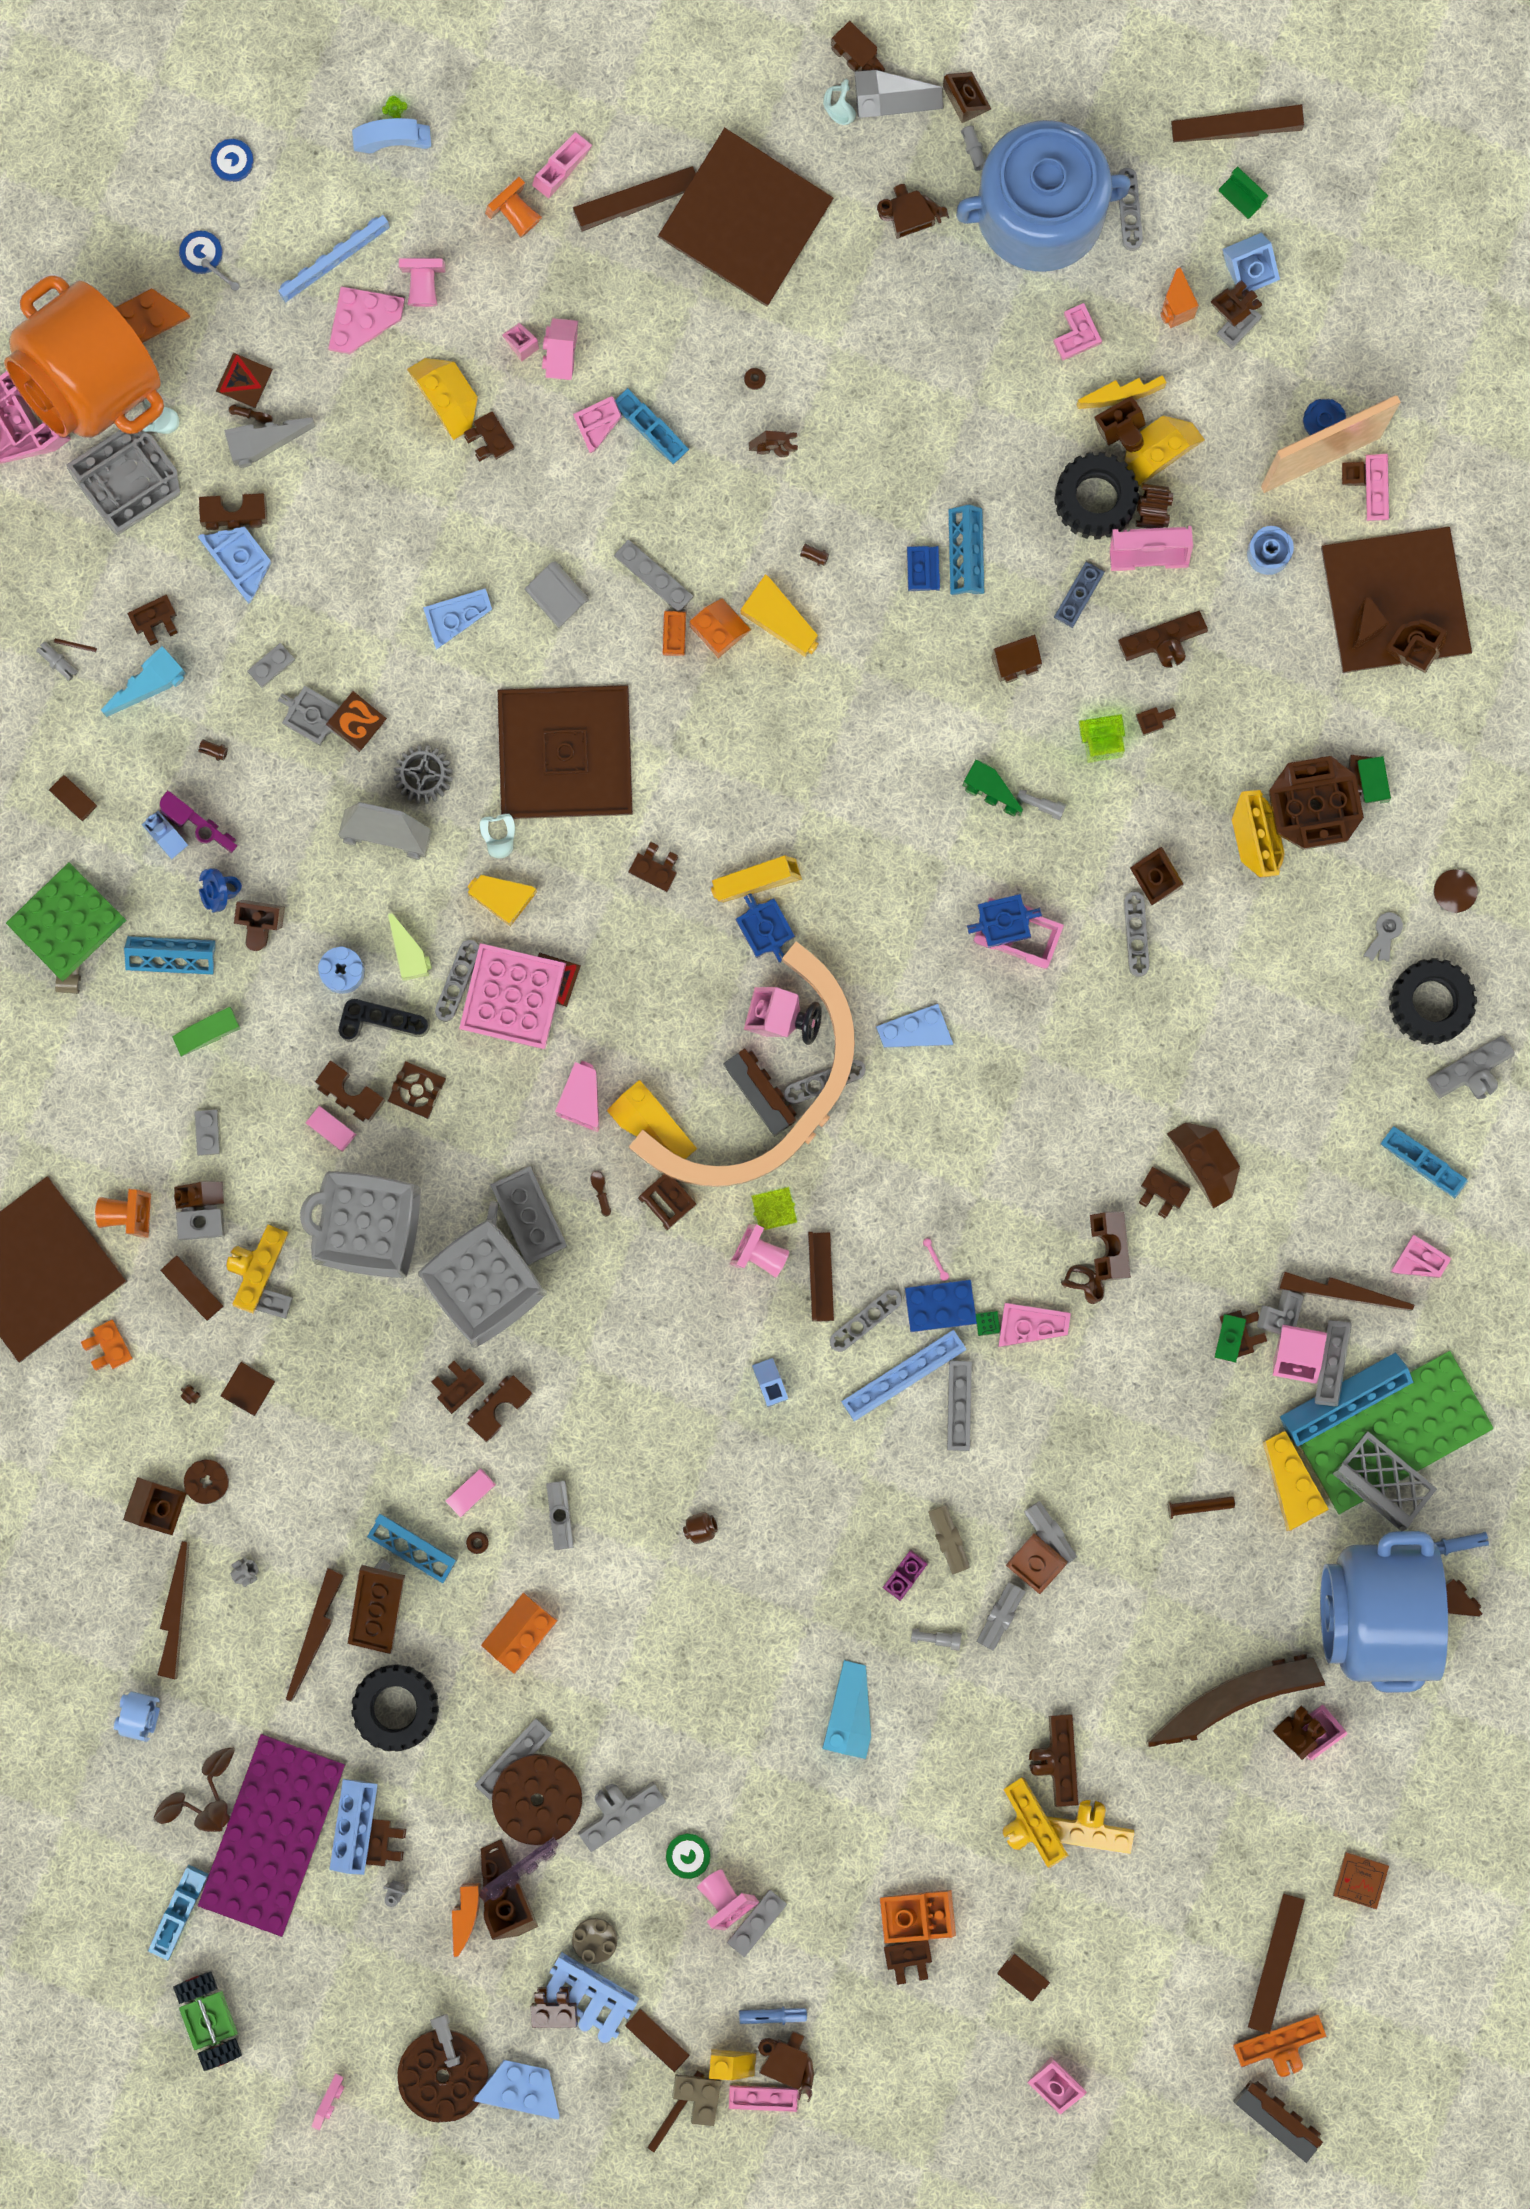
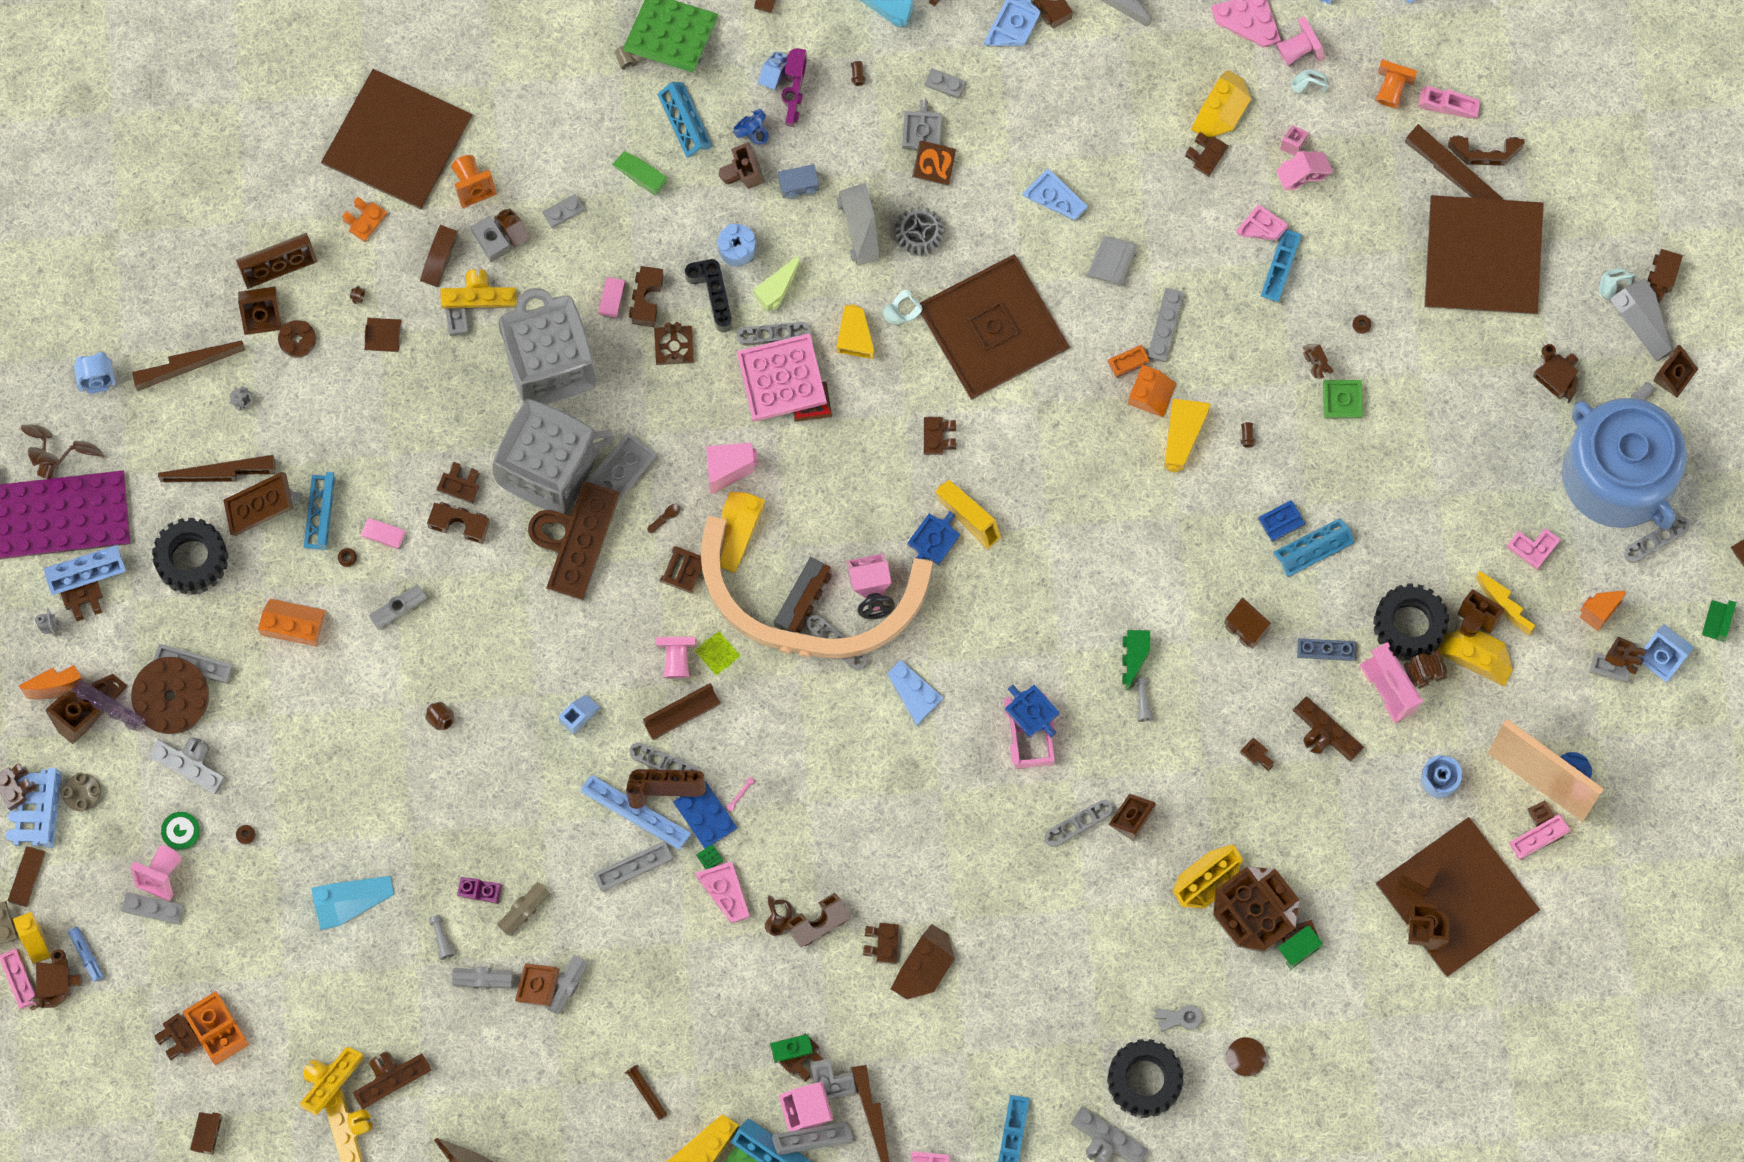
camera: 65 degrees right, 10 degrees down
(108, 1462) = (276, 260): none -> reddish brown brick
(303, 871) = (798, 181): none -> sand blue piece
(460, 298) = (1301, 80): none -> light aqua piece
(585, 1288) = (582, 538): none -> reddish brown plate
(618, 178) = (1460, 147): none -> reddish brown slope
(726, 1782) = (245, 840): none -> reddish brown plate
(825, 439) = (1342, 398): none -> bright green plate
(895, 1330) = (663, 783): none -> reddish brown beam
(1103, 737) = (1219, 719): clear neon green plate -> none

